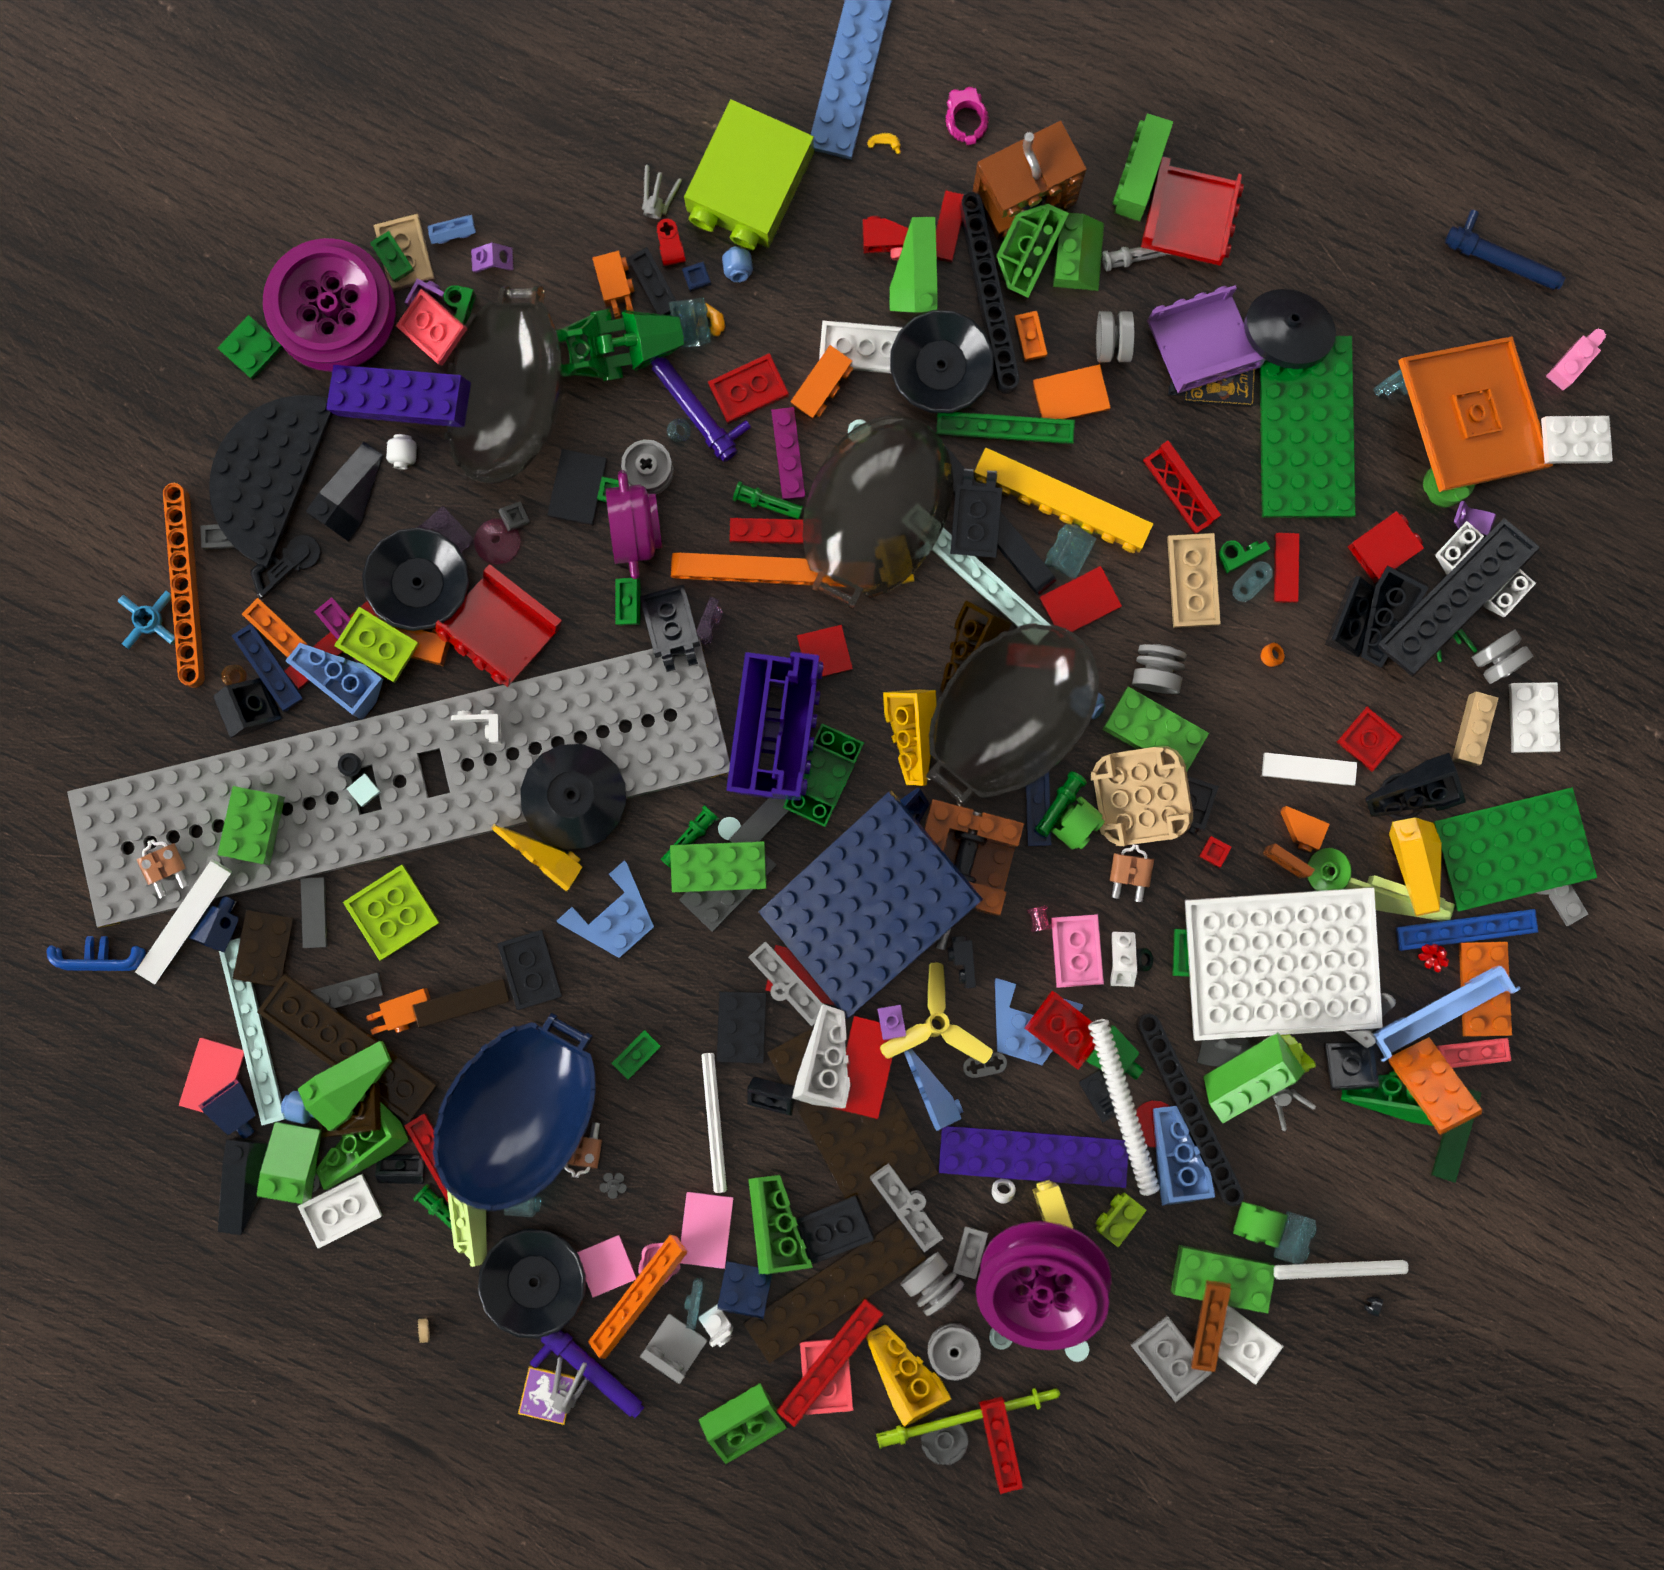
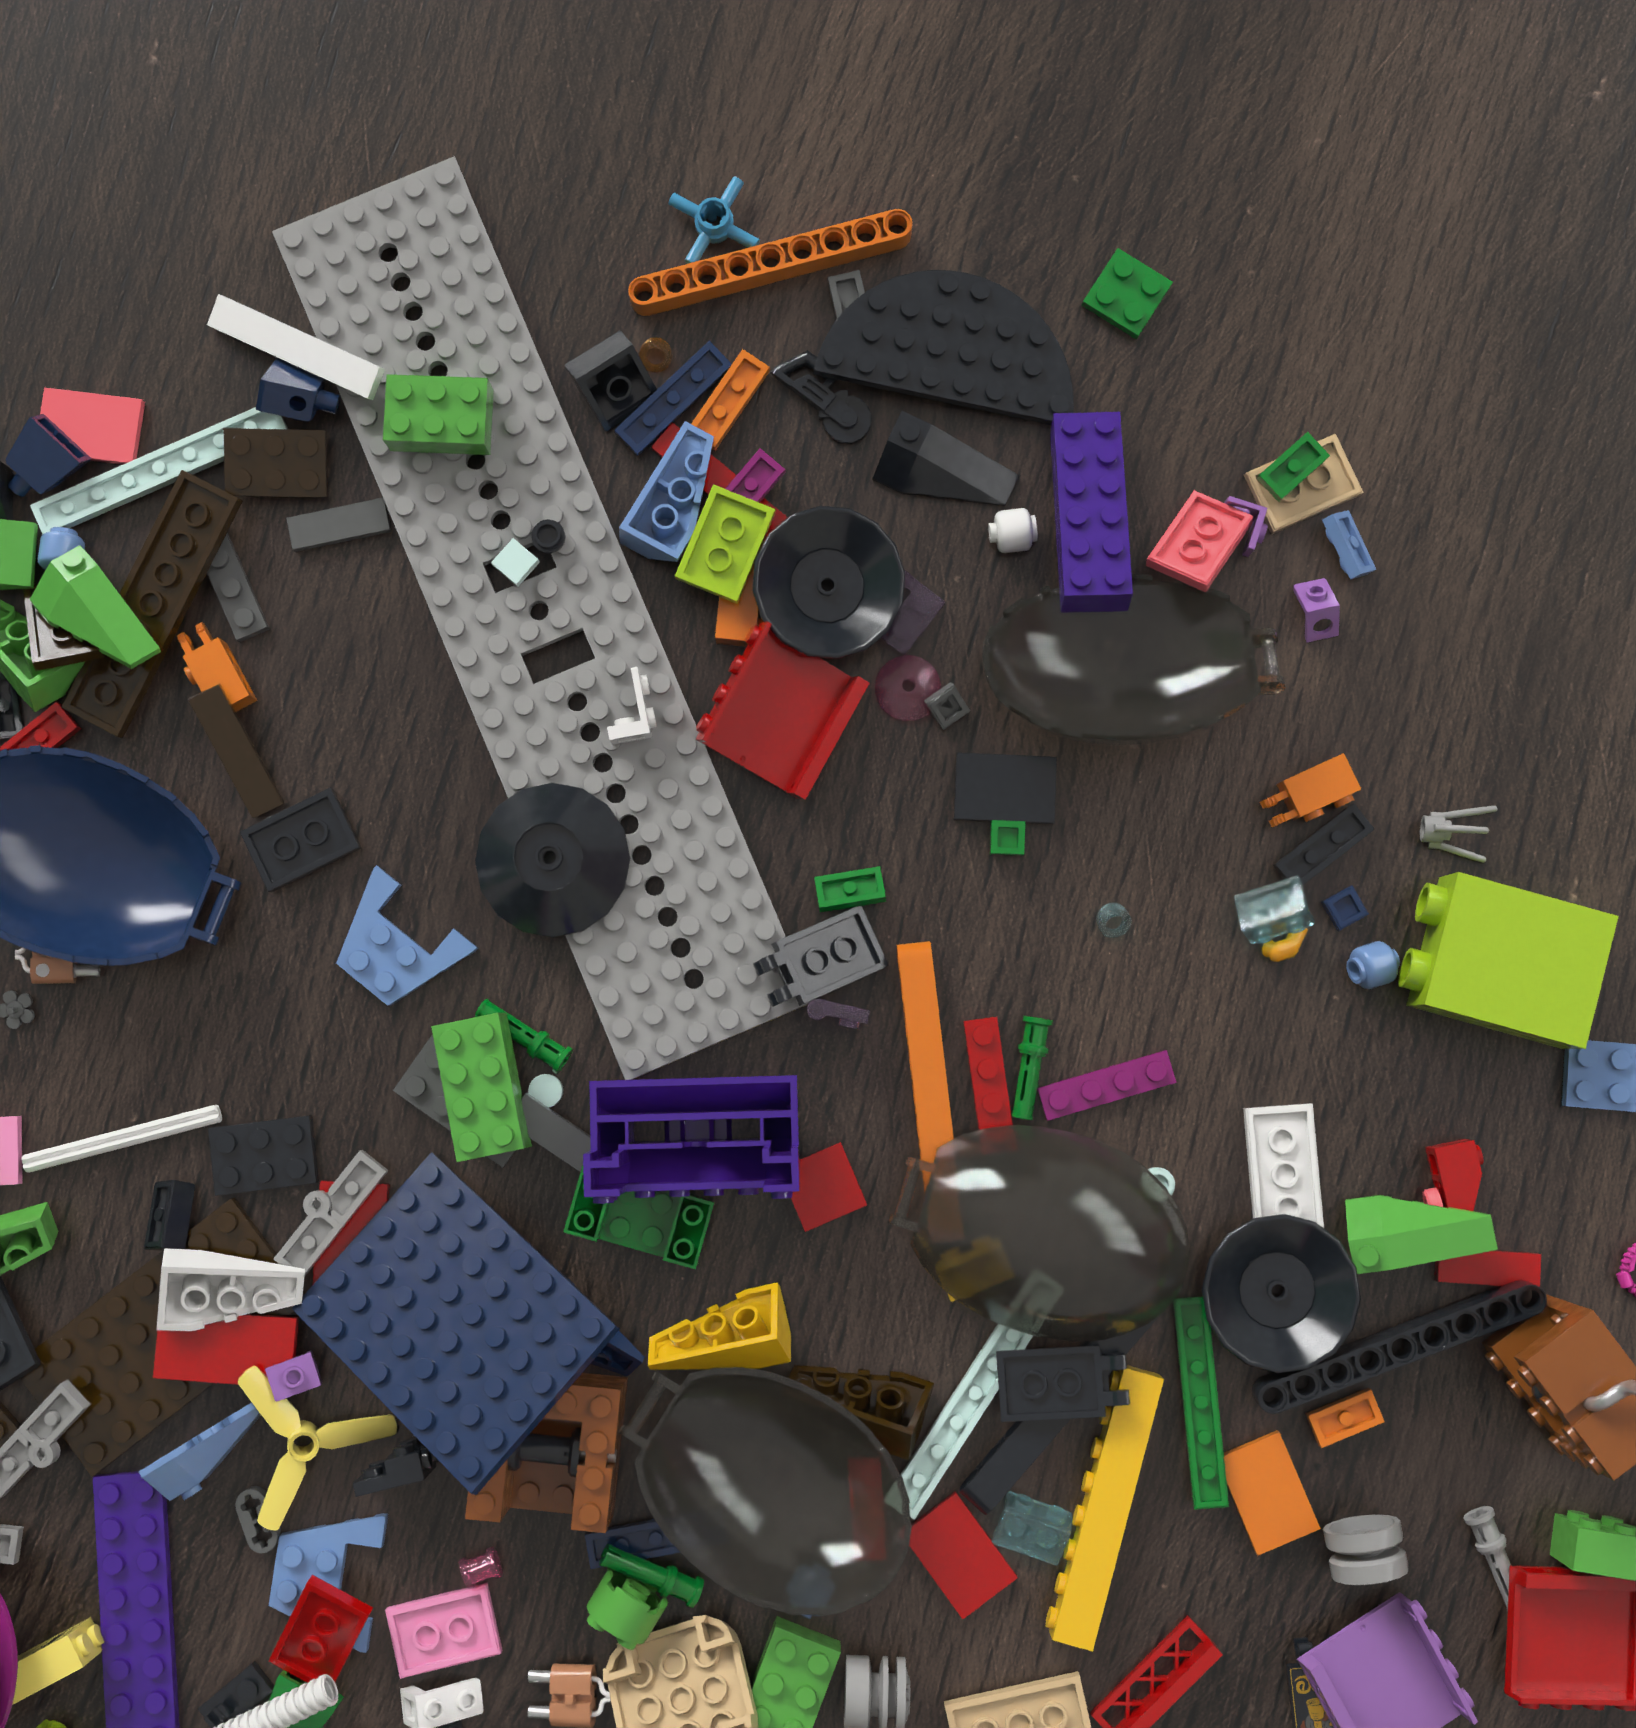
camera: 80 degrees right, 0 degrees up
(101, 964) = (217, 188): blue piece -> none
(161, 865) = (366, 301): nougat piece -> none
(315, 268) = (1255, 361): magenta wheel -> none
(391, 912) = (353, 632): lime plate -> none
(464, 306) = (1238, 582): green plate -> none
(552, 861) = (451, 854): yellow wedge -> none
(632, 523) = (959, 879): magenta piece -> none
(636, 1055) = (201, 1011): green plate -> none
(644, 454) = (1069, 882): light grey wheel -> none
(646, 335) = (1237, 855): green piece -> none
(670, 245) = (1382, 863): red piece -> none
(715, 436) = (1112, 975): dark purple cylinder -> none
(748, 388) = (1192, 1011): red tile -> none
(822, 382) = (1219, 1120): orange brick -> none
(885, 138) = (1602, 1152): yellow piece -> none
(1000, 1197) = (70, 1571): white piece -> none
(1029, 246) = (1480, 1398): bright green wedge -> none
(1079, 253) = (1485, 1468): bright green slope -> none

